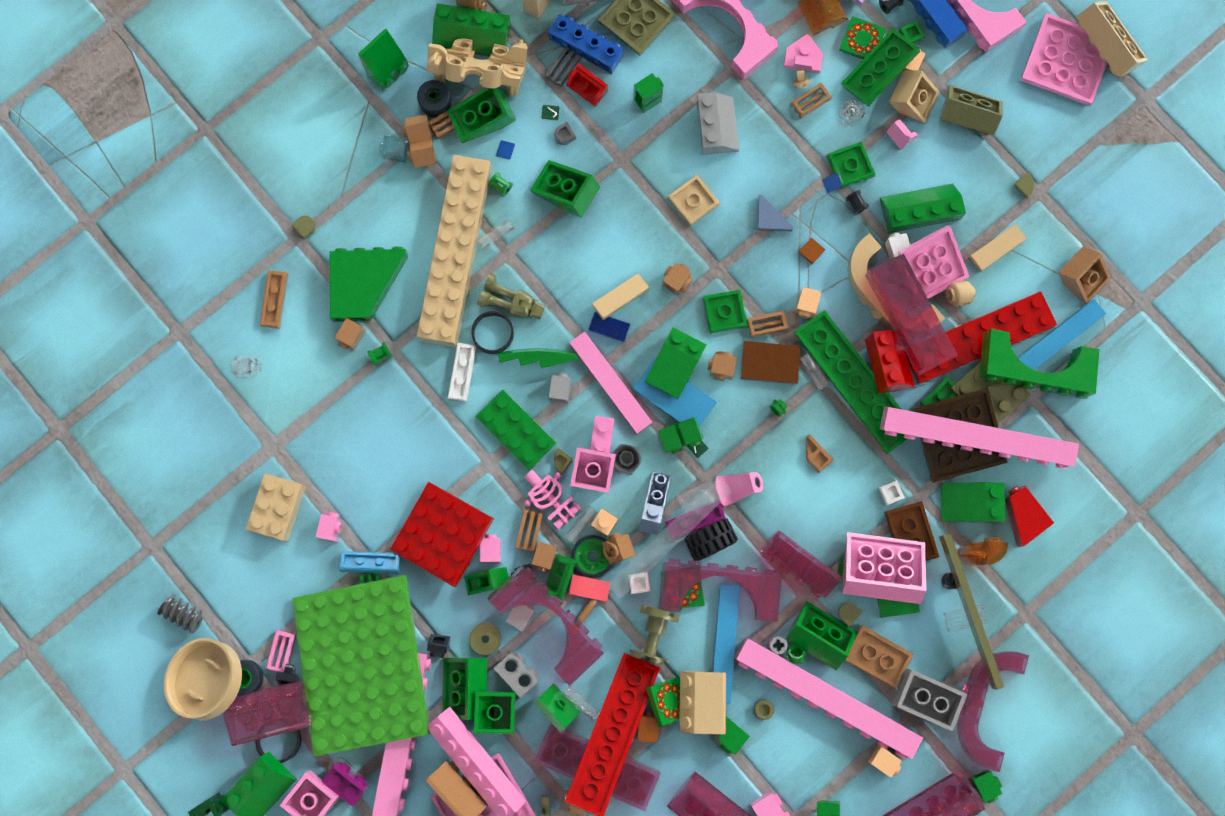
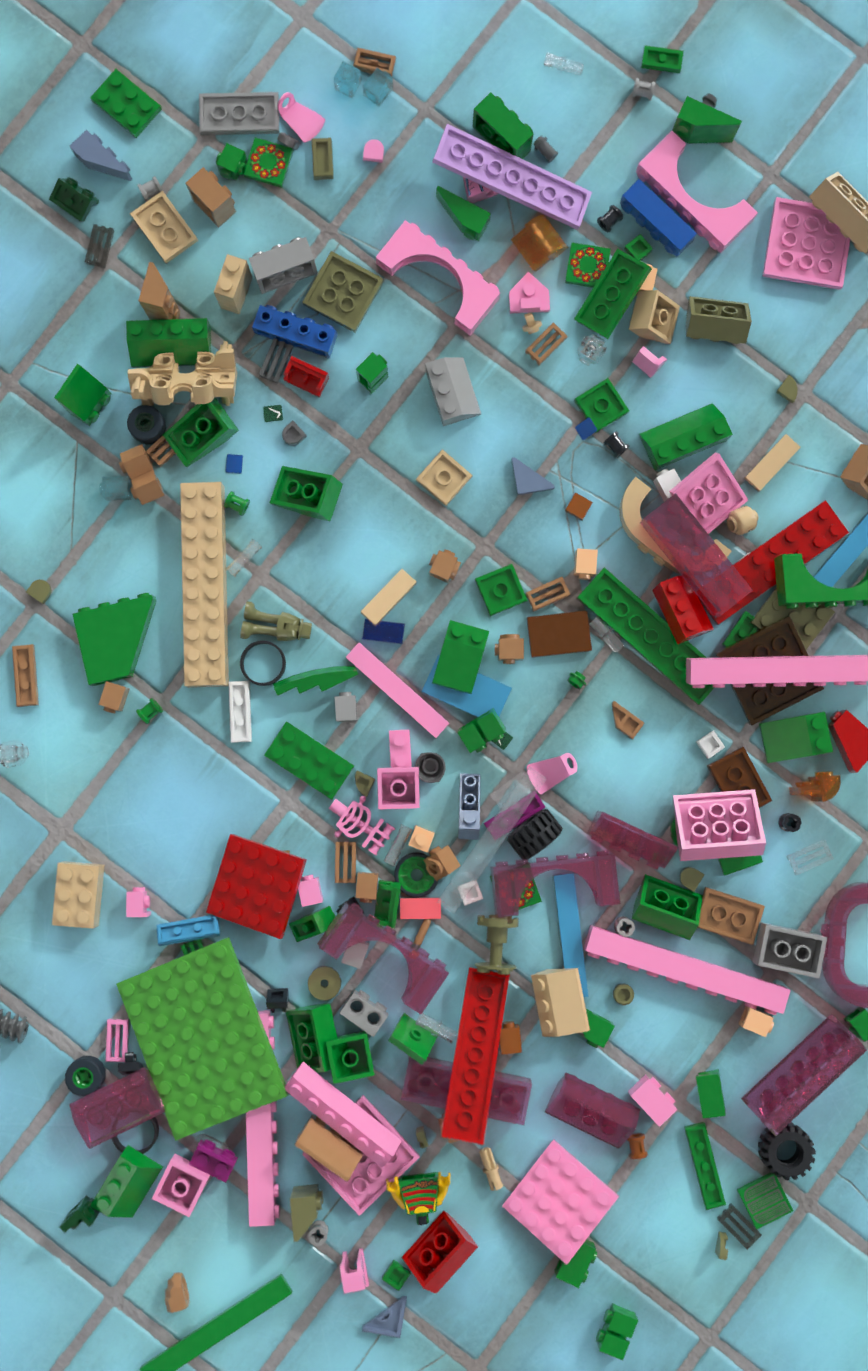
camera: 15 degrees left, 5 degrees up
(202, 679) = (43, 1088): tan brick -> none
(665, 701) = (522, 1008): tile -> none
(795, 651) = (645, 928): green plate -> none
(971, 611) = (815, 852): olive tile -> none

